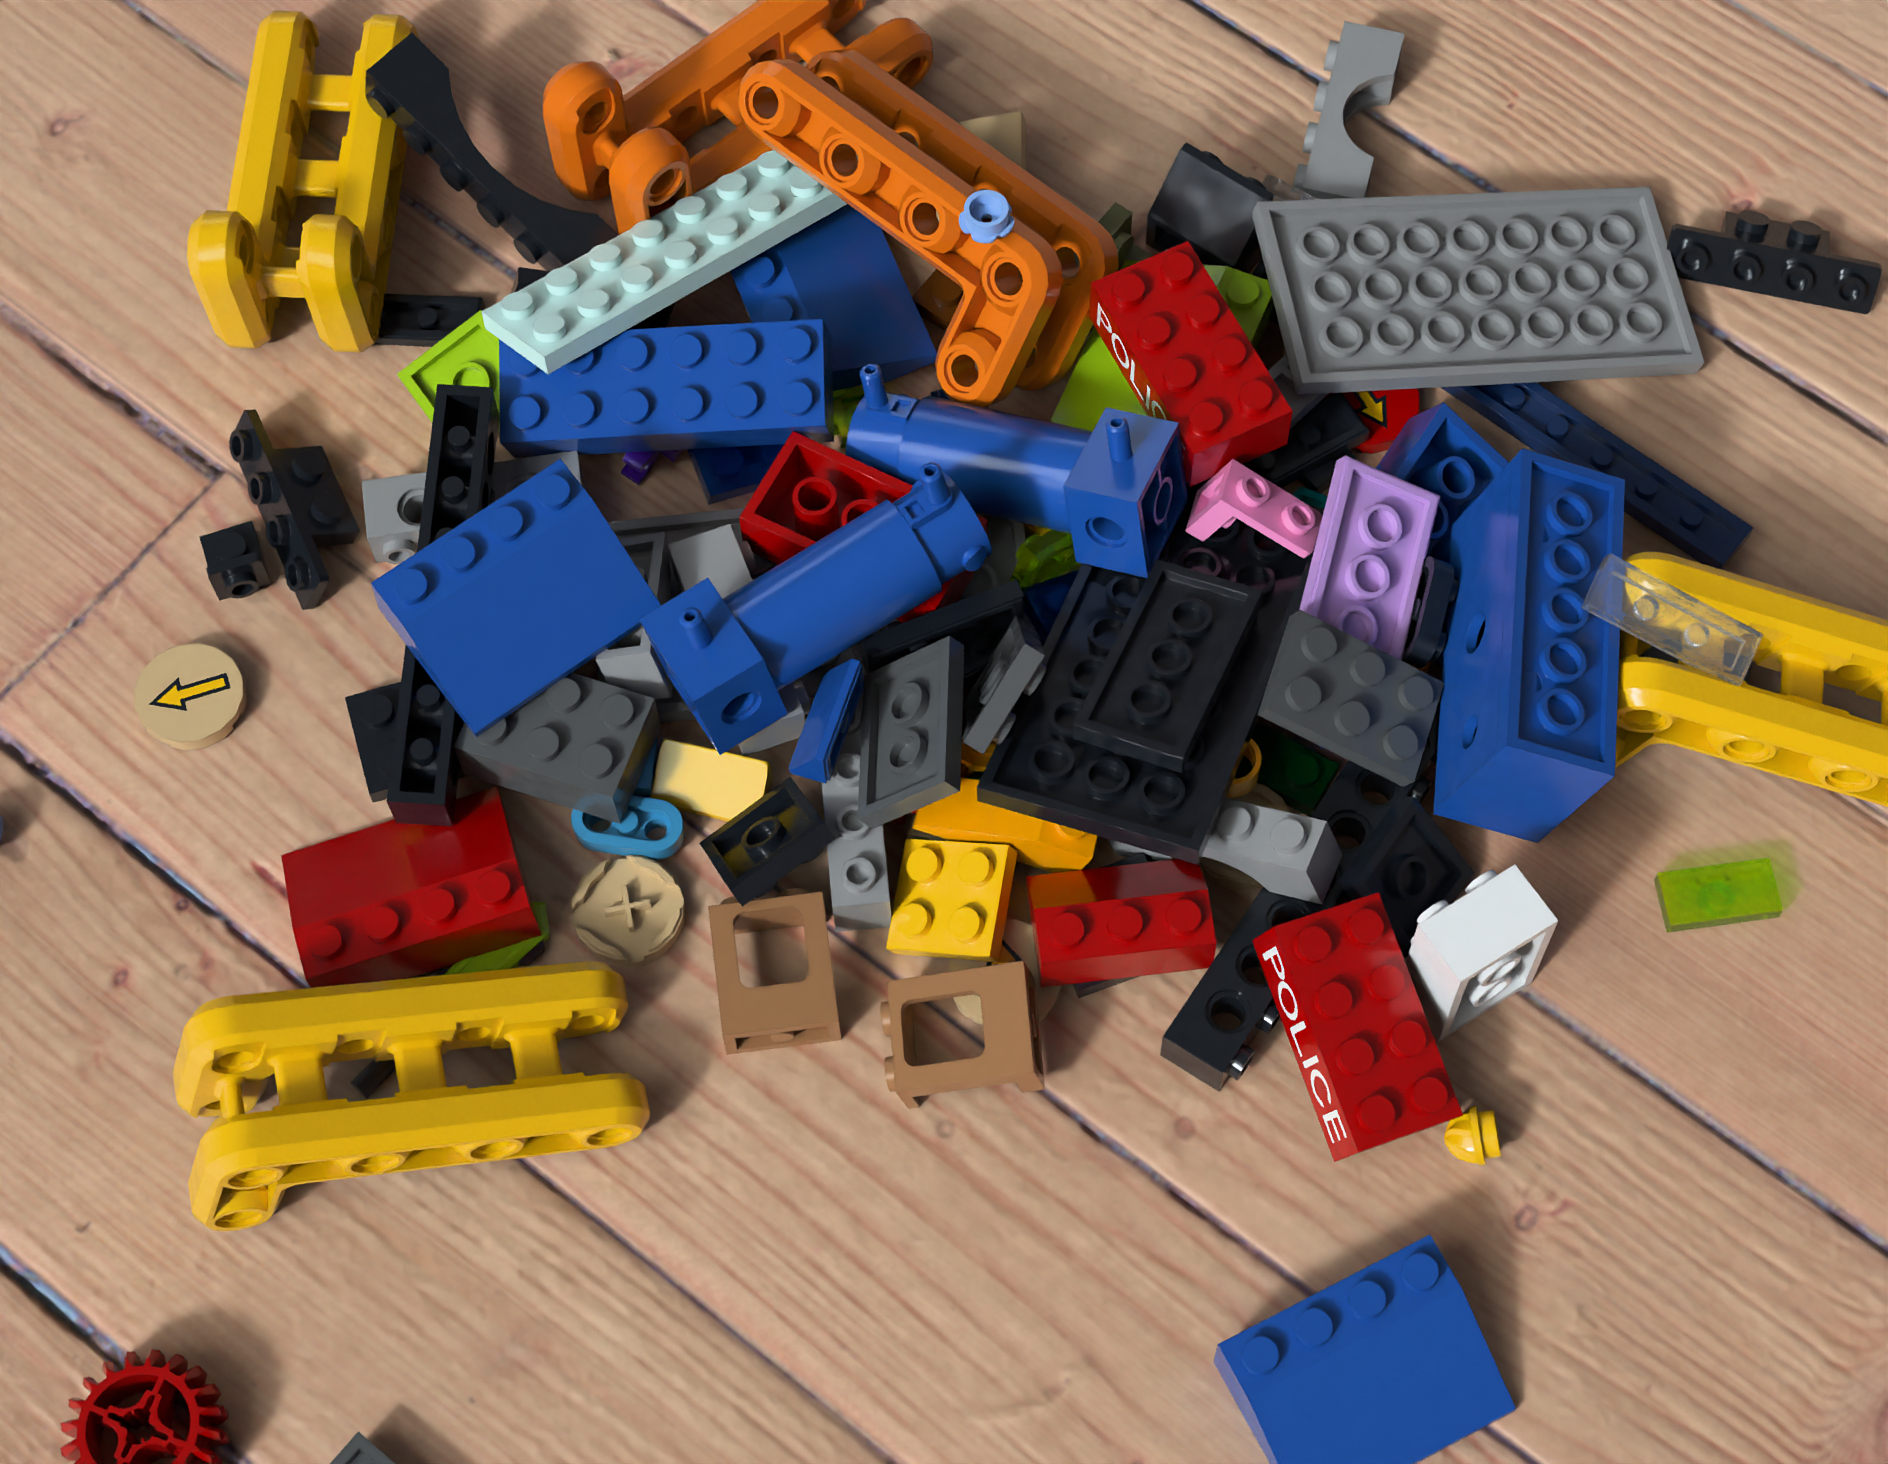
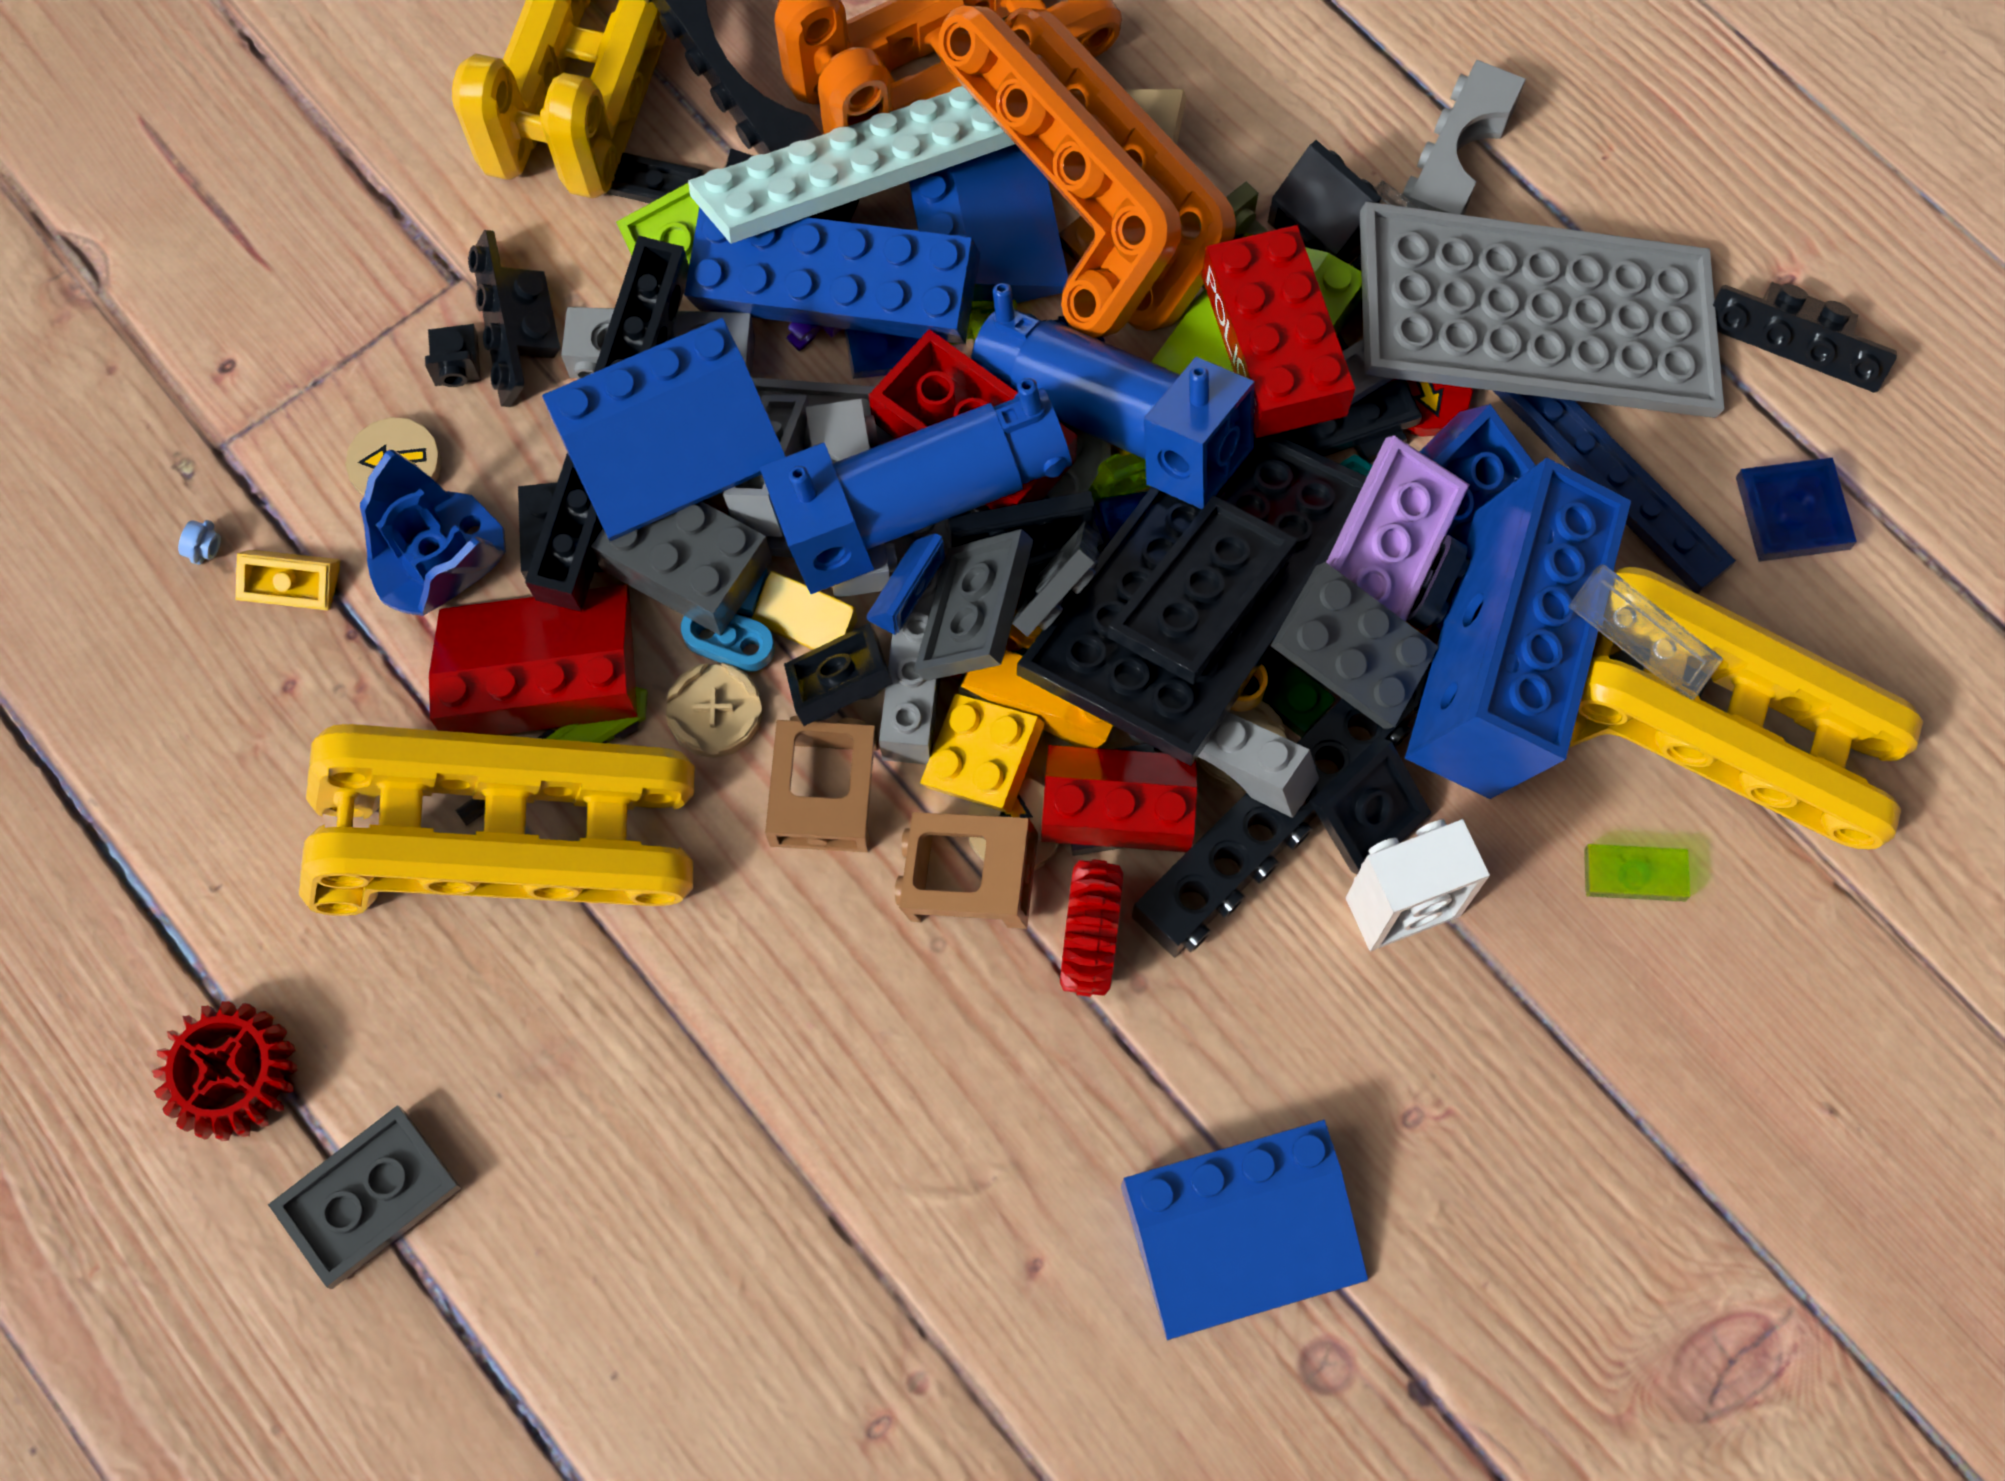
camera: 10 degrees right, 5 degrees up
(92, 855) = (286, 579): none -> yellow slope
(244, 777) = (420, 537): none -> blue piece
(986, 205) = (1123, 162): light blue plate -> none
(1120, 1071) = (1091, 928): none -> red gear
(1258, 503) = (1311, 463): bright pink bracket -> none
(1356, 1026) = (1300, 929): red brick -> none
(1473, 1136) = (1381, 1040): yellow plate -> none
(1807, 459) = (1795, 509): none -> clear blue plate

